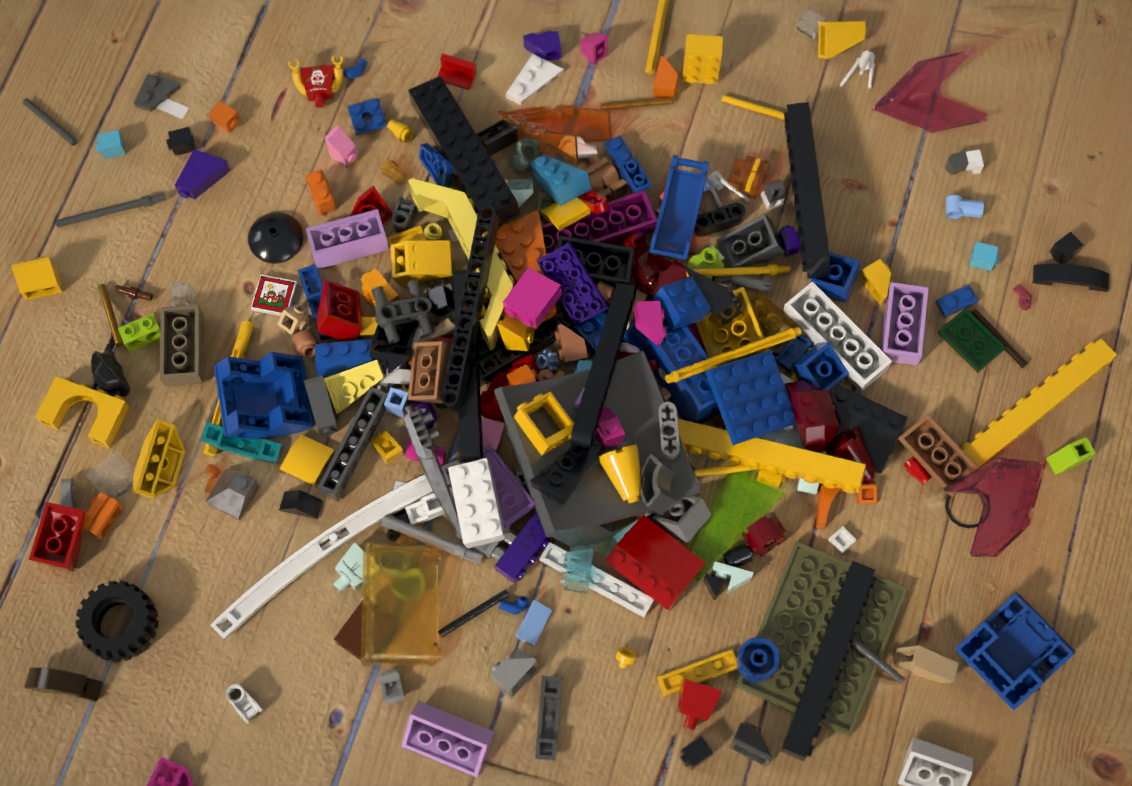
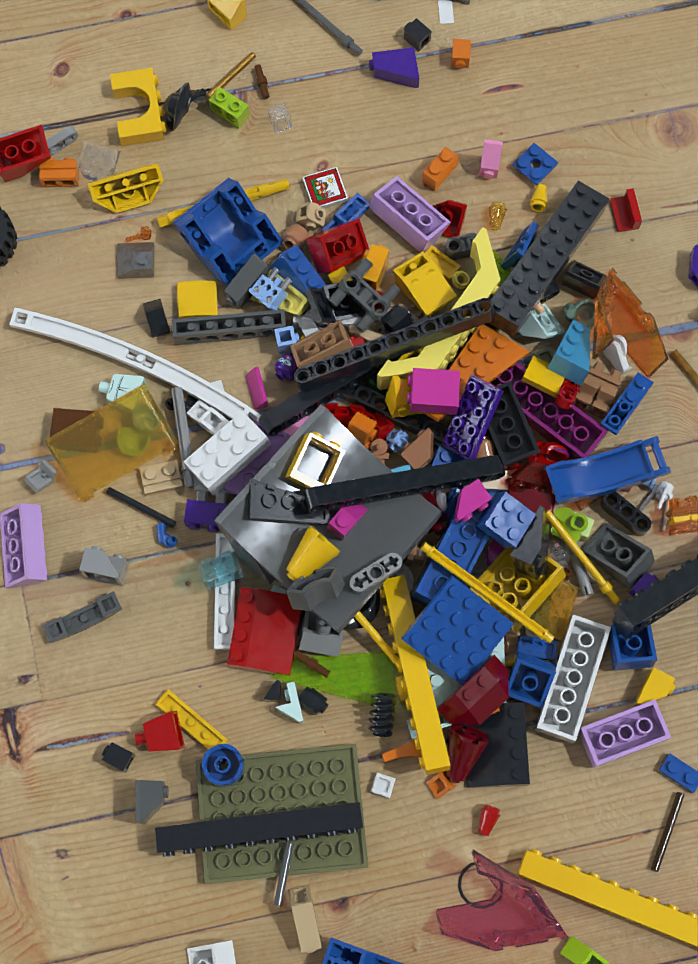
camera: 60 degrees right, 5 degrees up
(181, 345) = (235, 144): dark tan brick -> none
(250, 448) = (183, 253): teal slope -> none
(278, 246) = (378, 168): black dish -> none
(318, 82) = (541, 105): torso -> none
(347, 395) = (269, 291): none -> light blue piece
(355, 71) = (572, 130): blue arm -> none
(387, 447) = (242, 354): yellow slope -> none
(423, 445) = (247, 392): flat silver piece -> none
(456, 580) = (161, 477): none -> tan plate
(532, 78) = (662, 277): white wing -> none
(533, 623) = (158, 560): light blue slope -> none
(625, 657) = (170, 652): yellow tile -> none
(706, 538) = (312, 663): none -> reddish brown bar
(765, 534) = (343, 712): dark red brick -> none
(773, 192) = (680, 548): dark grey leg -> none
(783, 503) = (383, 714): none -> black piece
(937, 452) = (511, 828): medium nougat slope -> none
(971, 340) = (648, 806): dark green plate -> none

